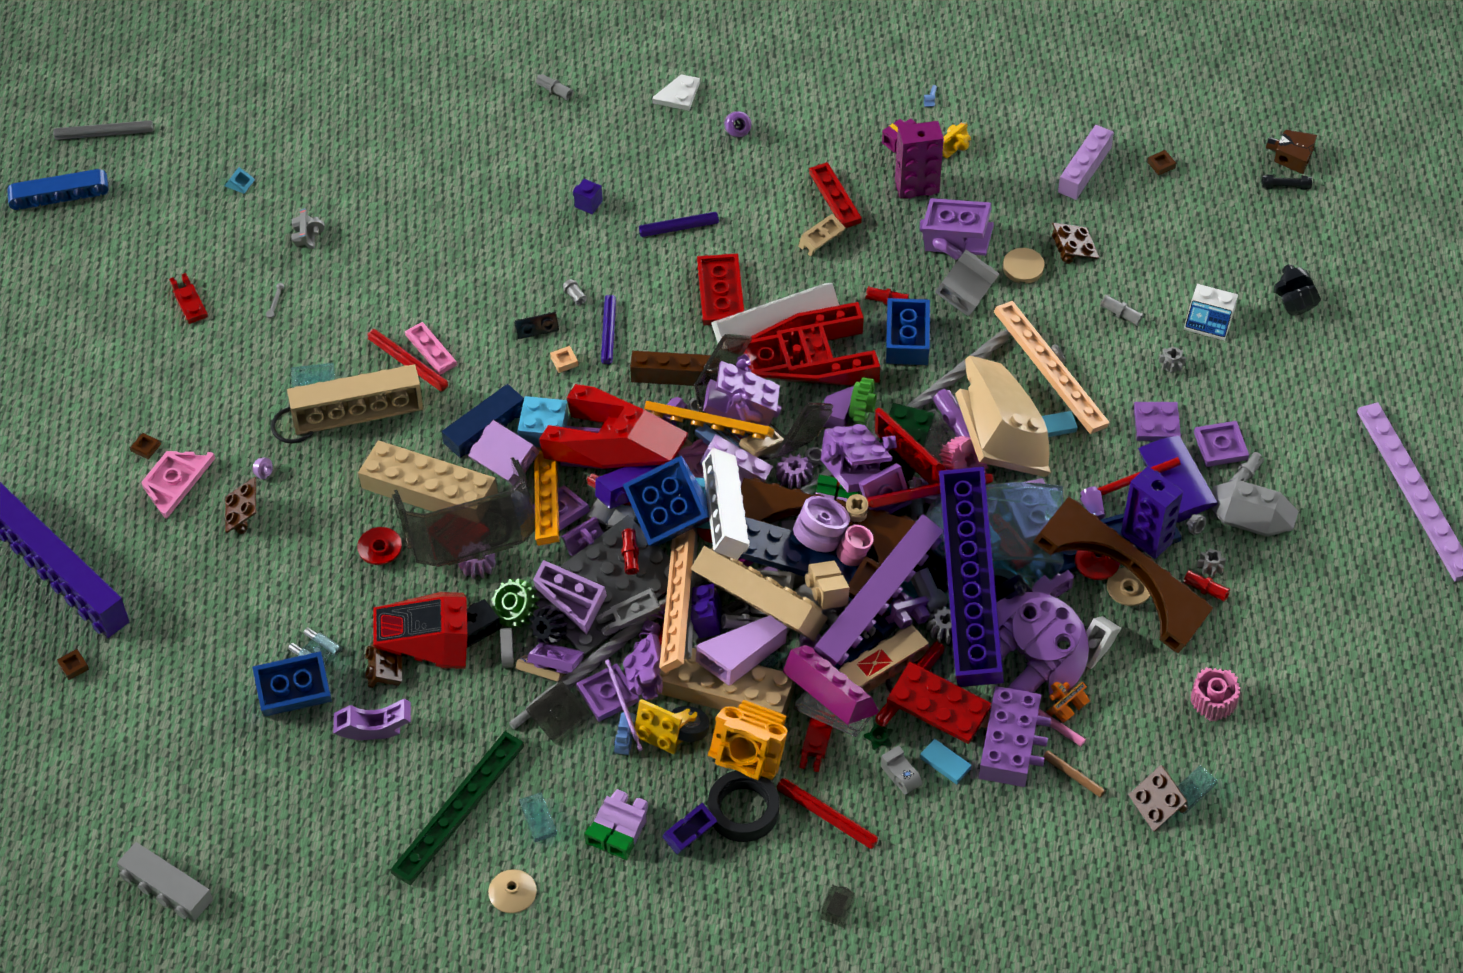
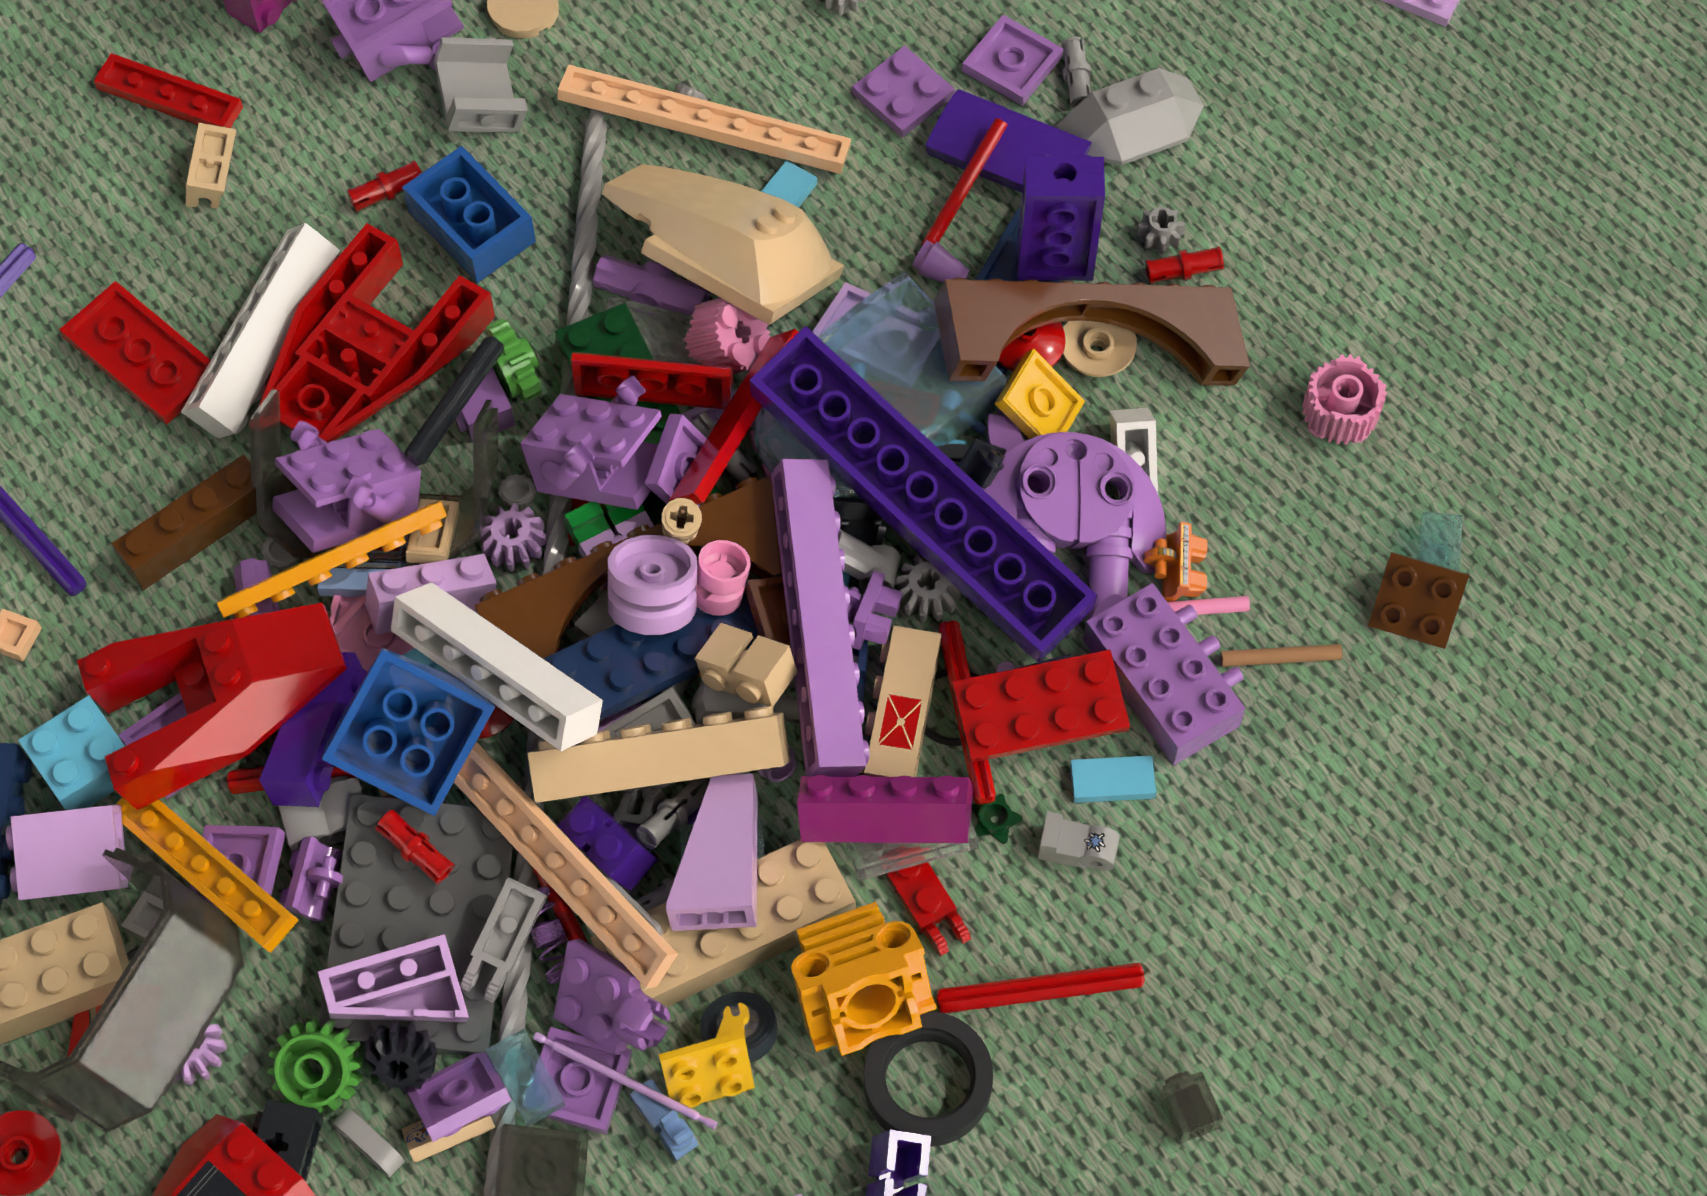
camera: 45 degrees left, 10 degrees up
(586, 670) = (525, 1077): none -> clear light blue plate
(816, 393) = (454, 401): none -> black axle
(1074, 586) = (1039, 398): none -> yellow tile

